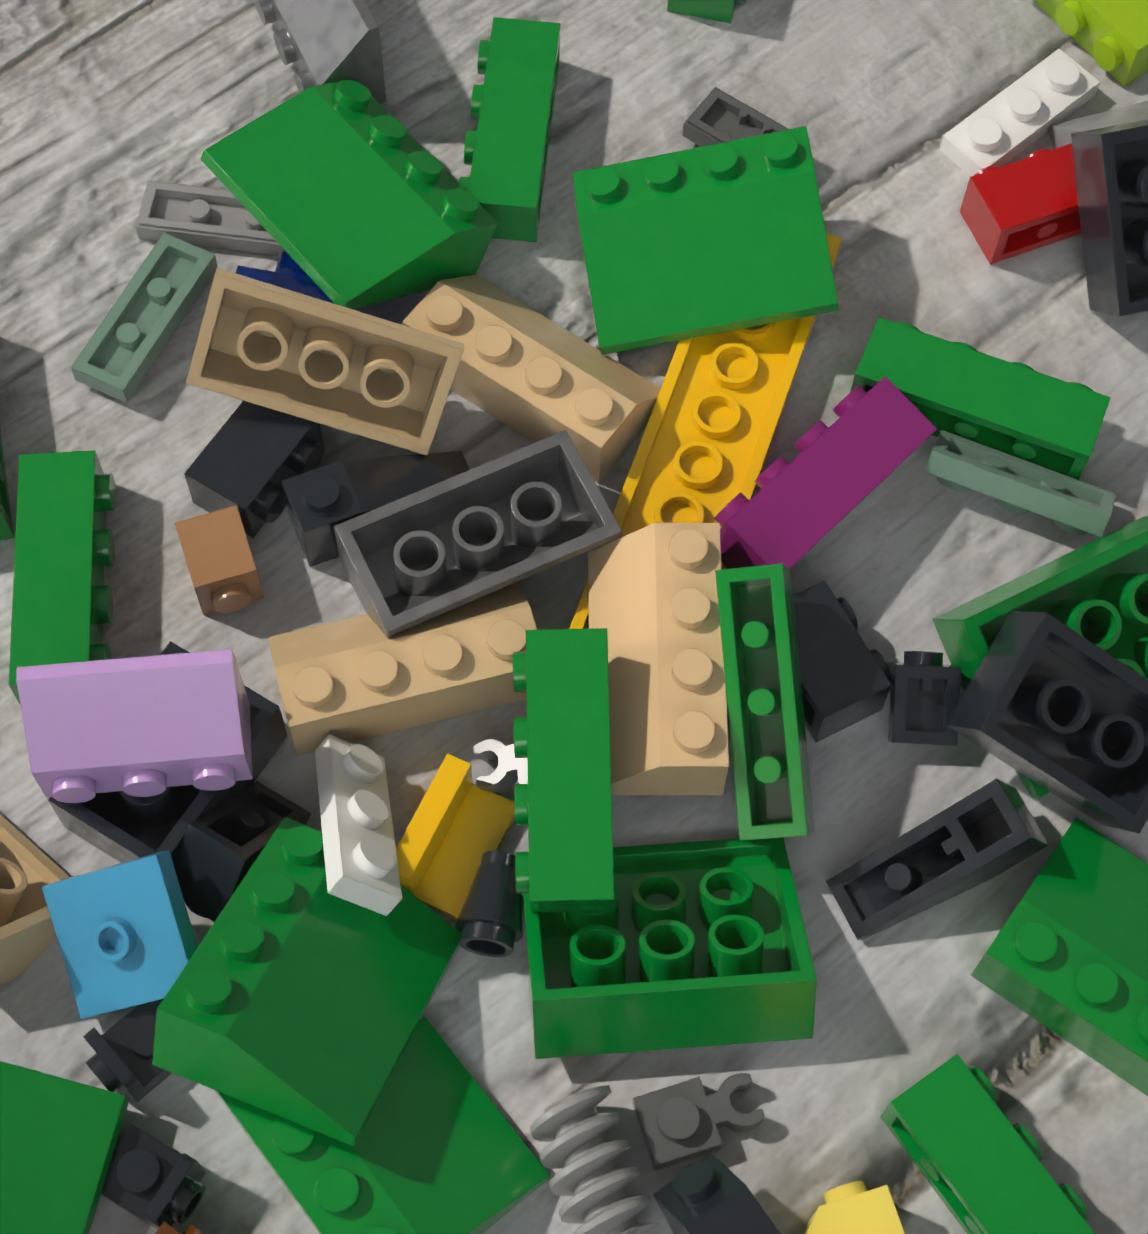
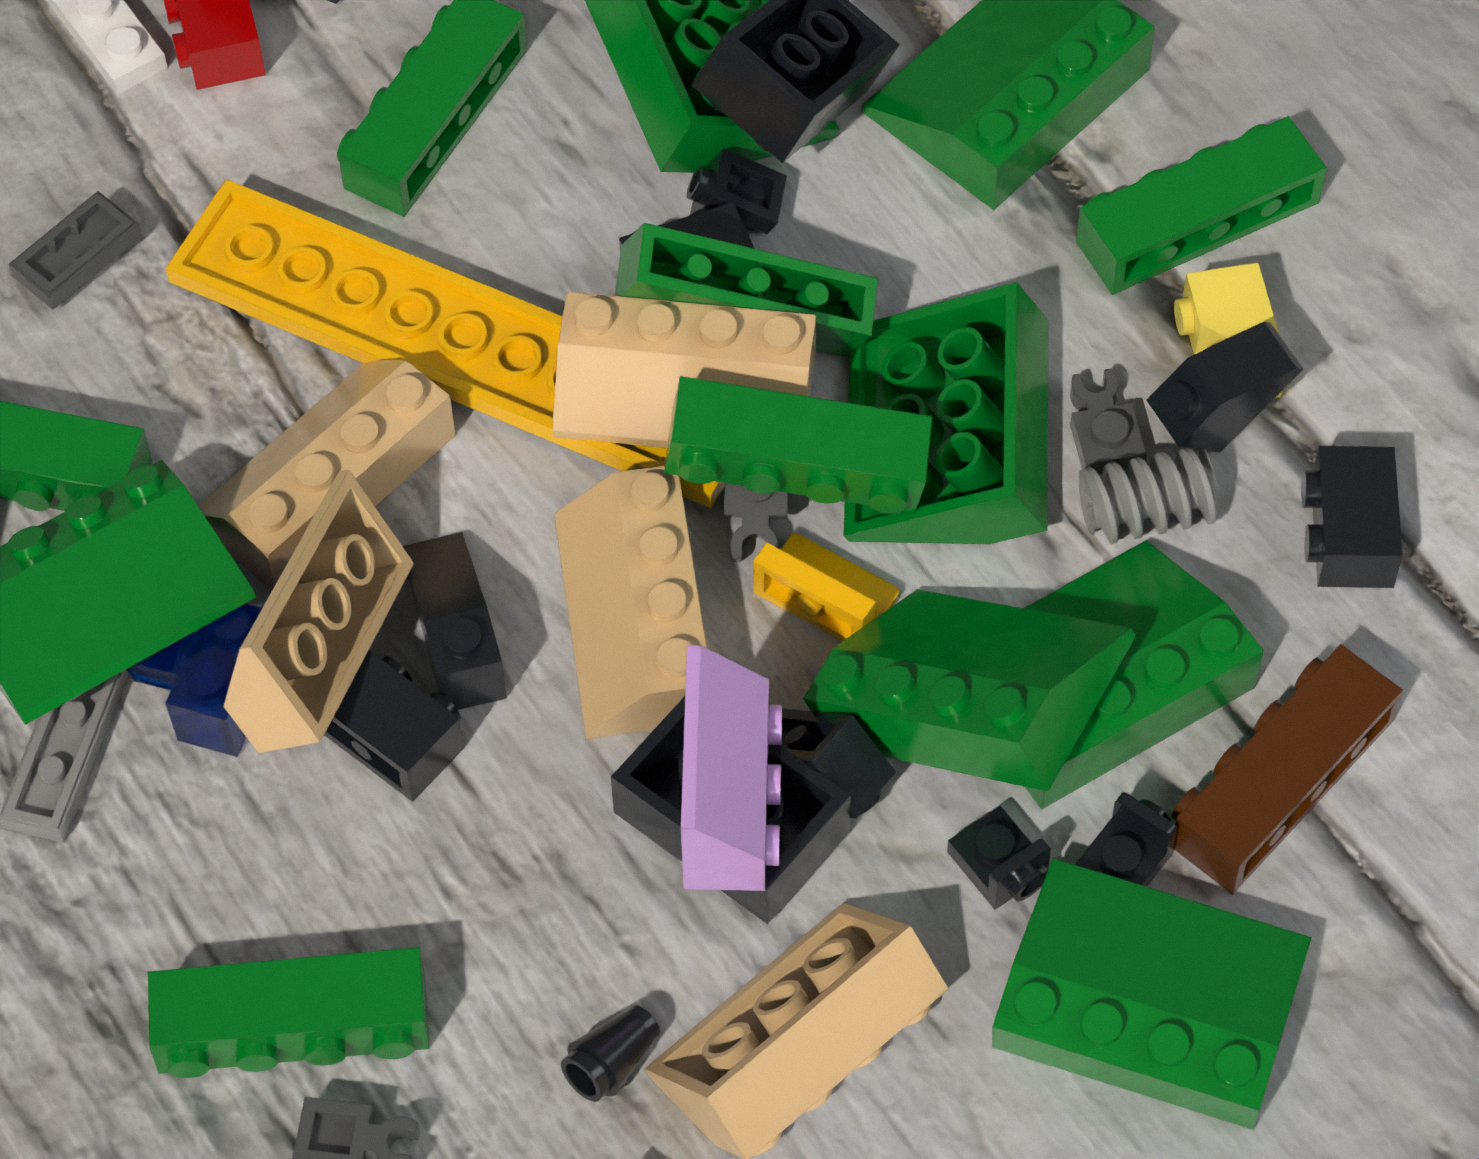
camera: 80 degrees left, 5 degrees down
(61, 561) = (497, 909): green brick -> none
(122, 933) = (903, 842): dark azure plate -> none
(144, 317) = (183, 825): sand green plate -> none
(220, 561) = (502, 761): medium nougat brick -> none
(357, 825) = (822, 634): white plate -> none
(474, 534) = (529, 520): flat silver slope -> none
(492, 909) = (898, 553): black cone -> none
(704, 241) = (220, 285): green slope -> none
(824, 482) = (510, 225): magenta brick -> none
(938, 859) = (896, 203): black slope -> none
(1020, 485) = (528, 83): sand green plate -> none

